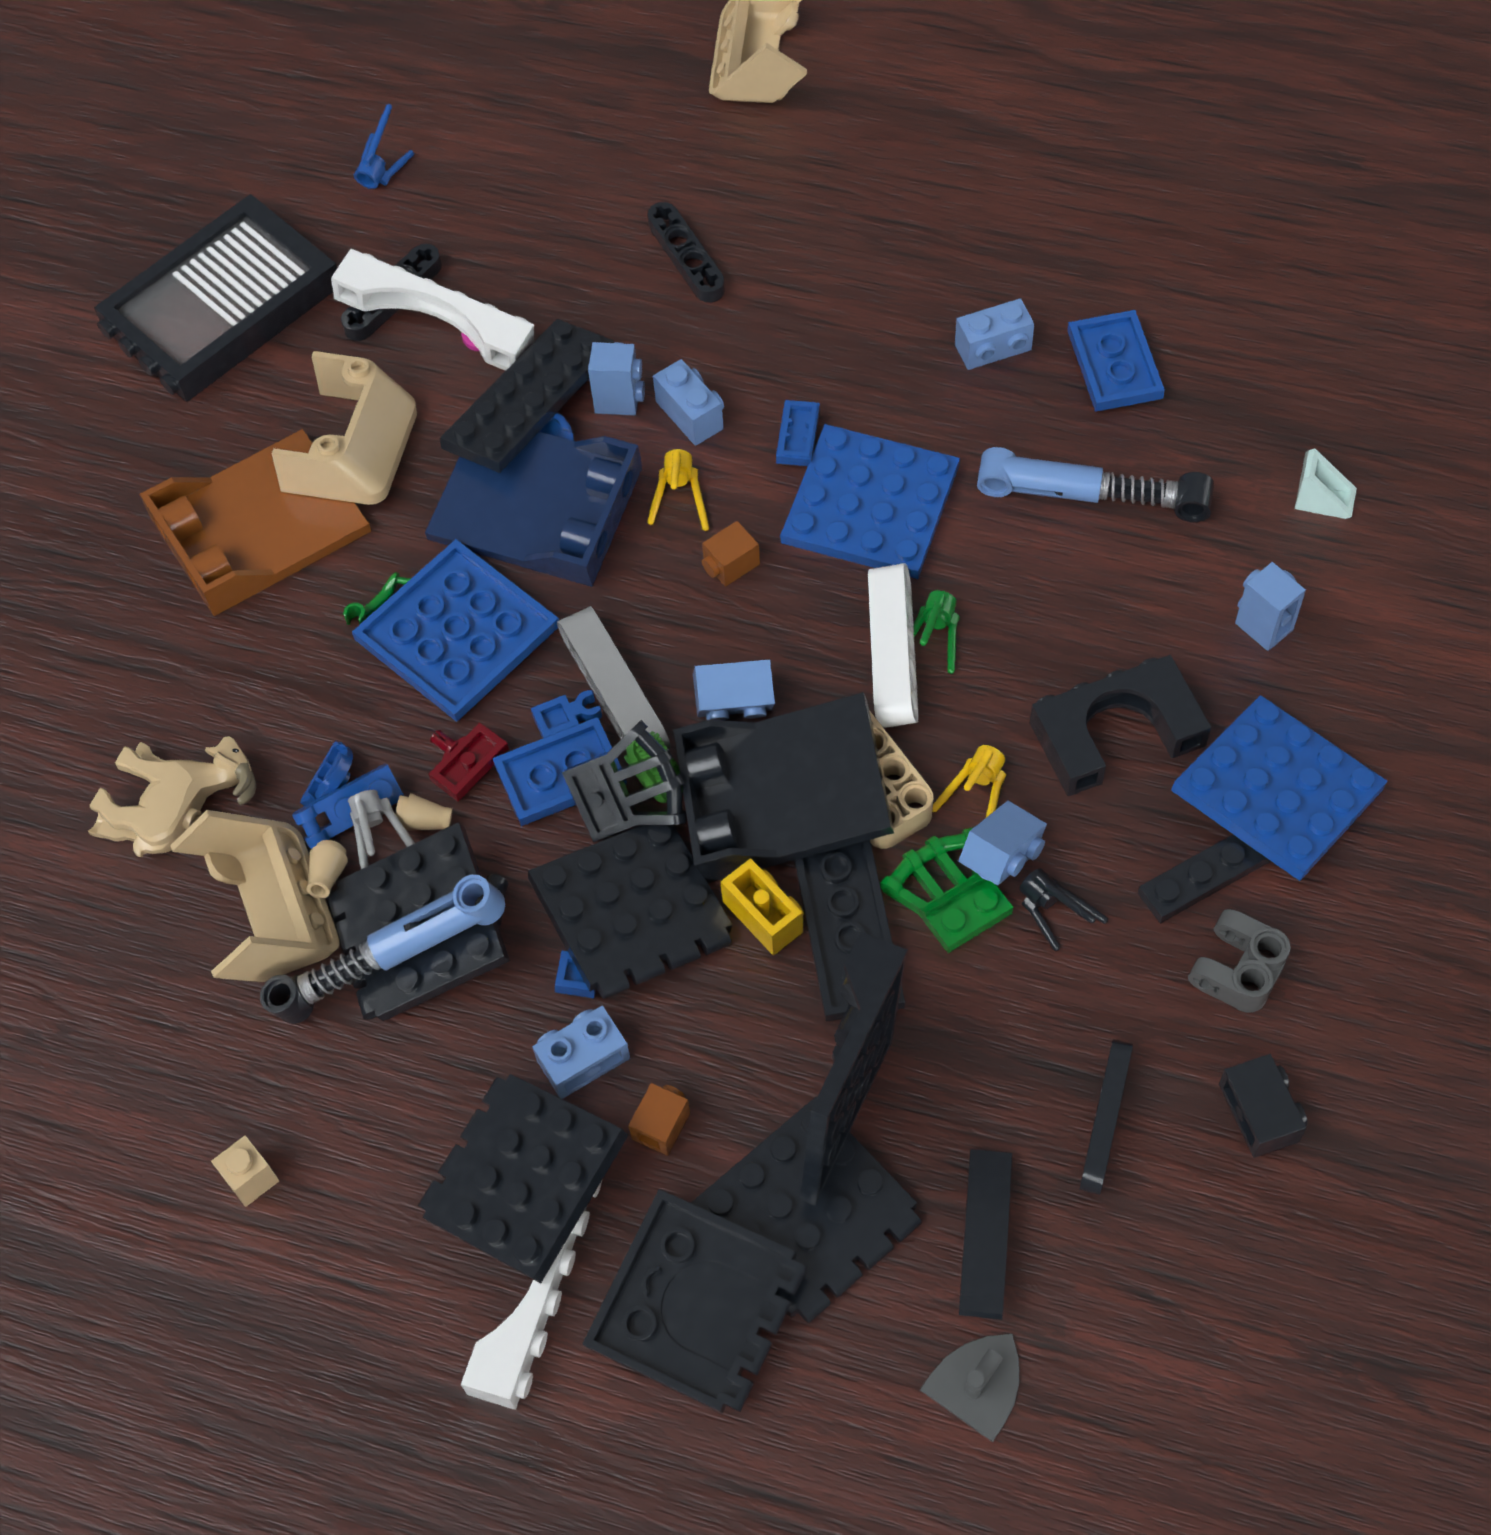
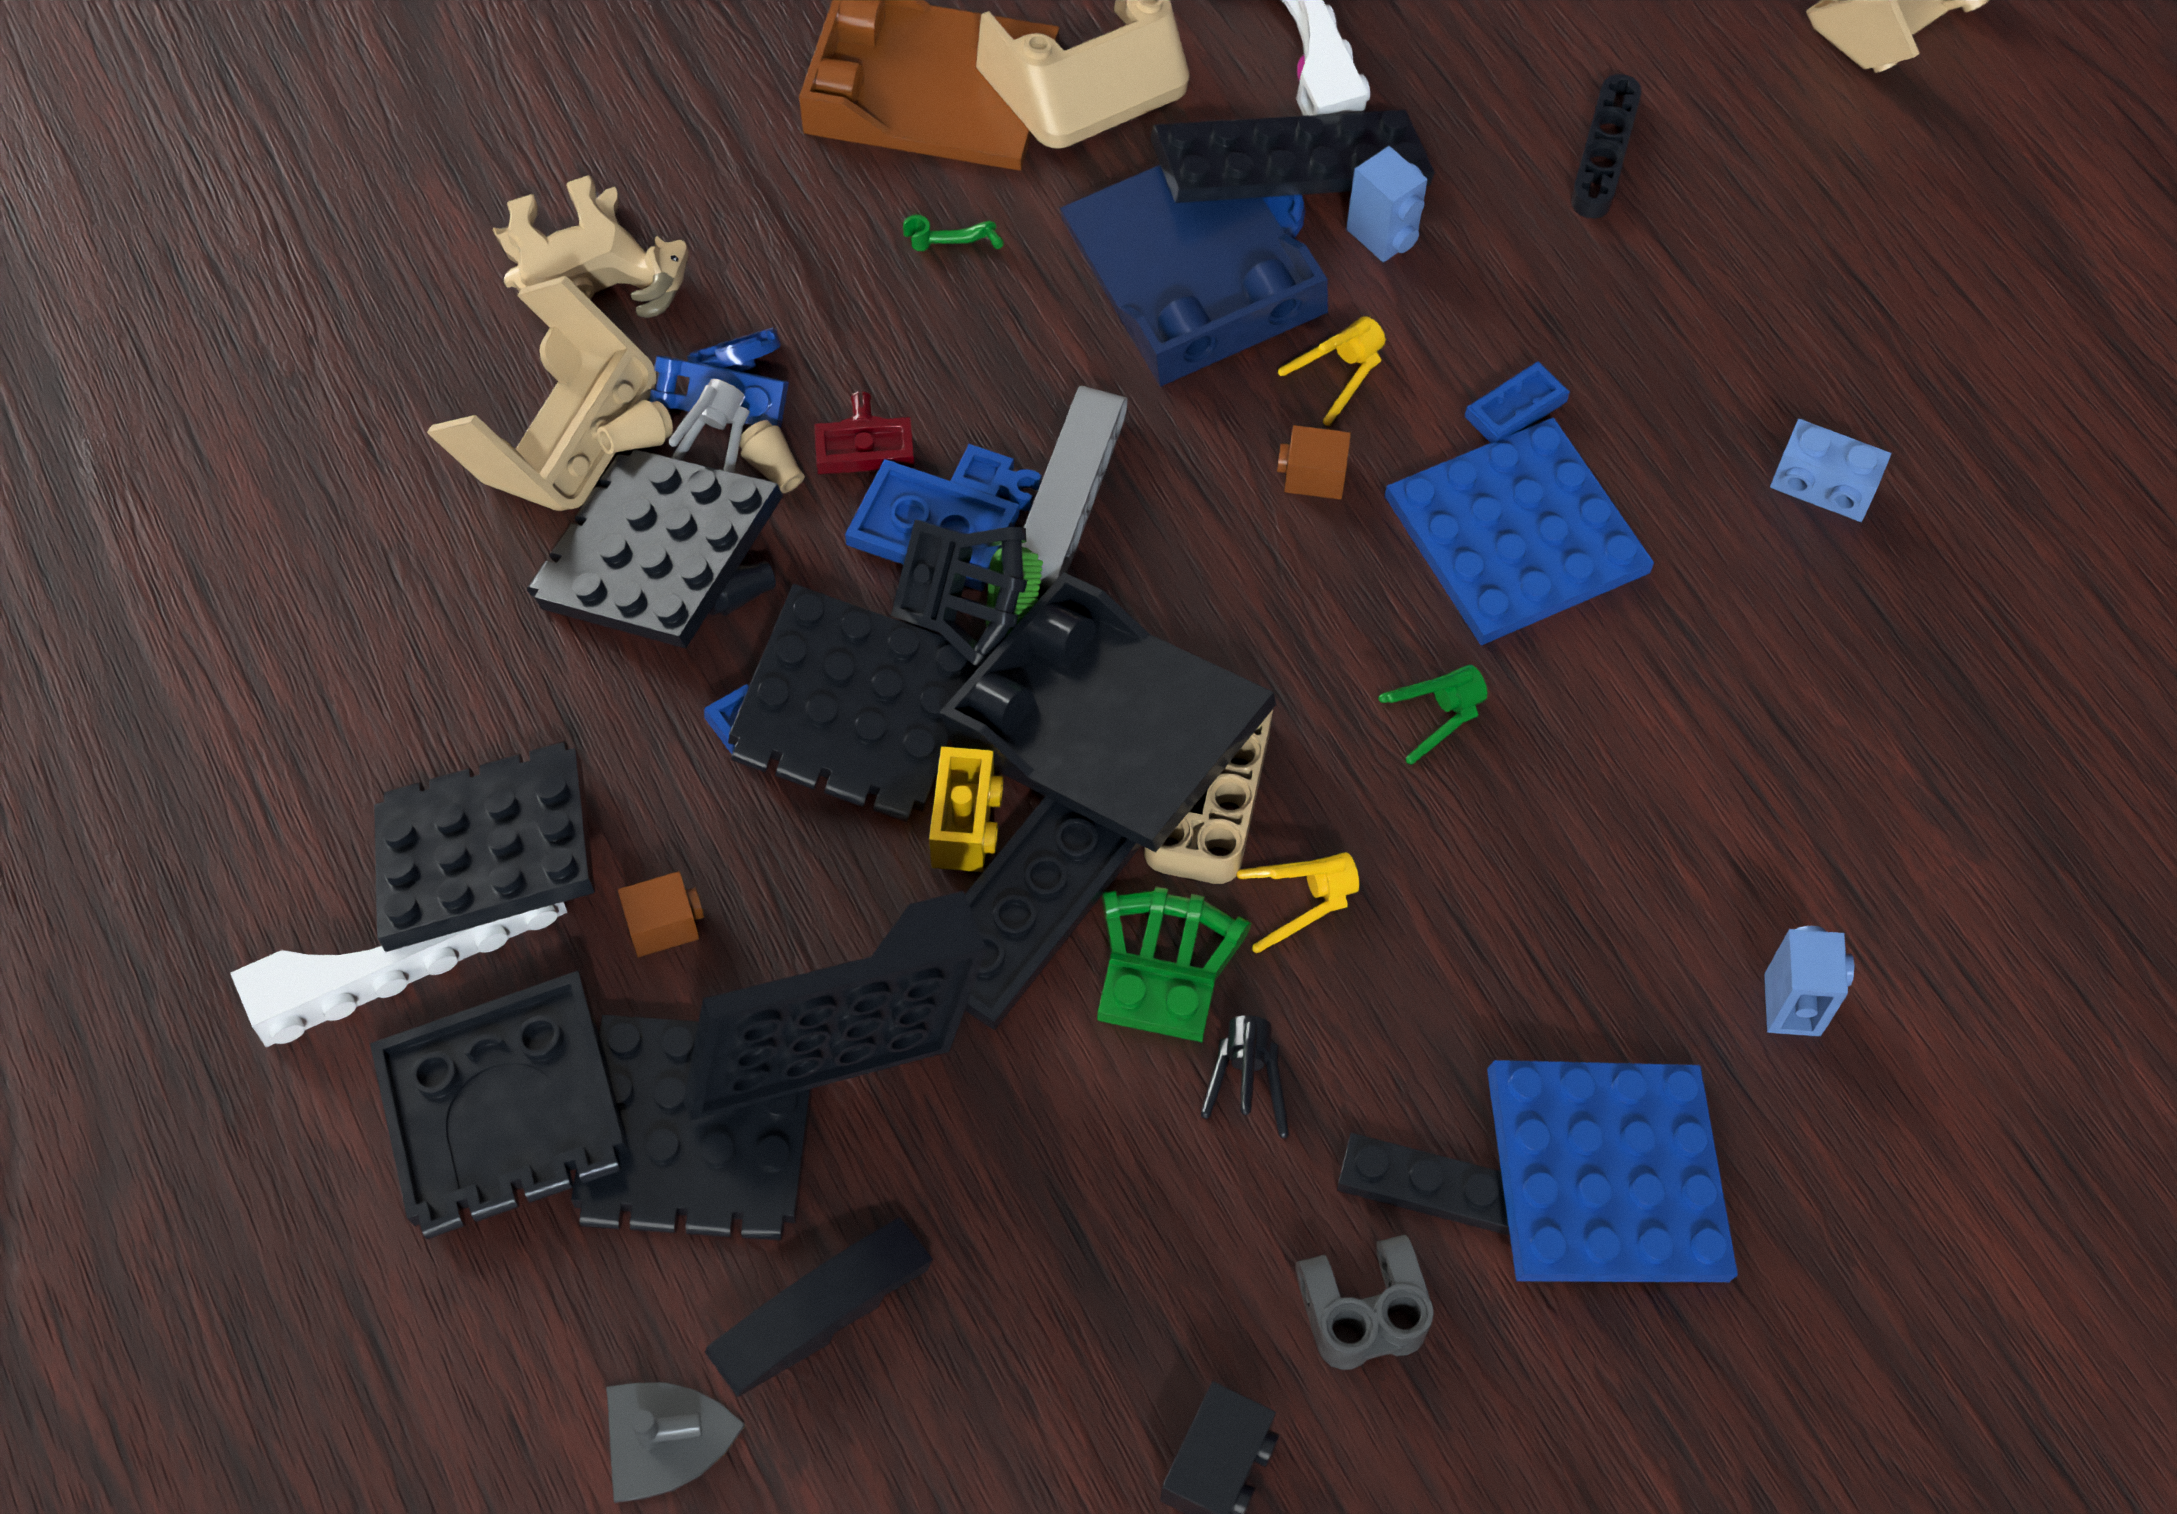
camera: 40 degrees right, 0 degrees up
(245, 1171) = (282, 626): tan brick -> none
(386, 947) = (677, 556): piece -> none
(456, 629) = (988, 318): blue plate -> none
(581, 1051) = (662, 789): medium blue brick -> none
(689, 401) = (1439, 286): medium blue brick -> none
(734, 689) = (1169, 588): medium blue brick -> none
(892, 646) = (1356, 693): white beam -> none
(1003, 843) = (1253, 960): medium blue brick -> none
(1005, 473) = (1684, 614): piece -> none
(1106, 1117) = (1059, 1315): black beam -> none
(1115, 360) = (1936, 603): blue plate -> none
(1150, 689) = (1466, 904): black arch -> none
(1324, 488) = (2020, 920): light aqua slope -> none

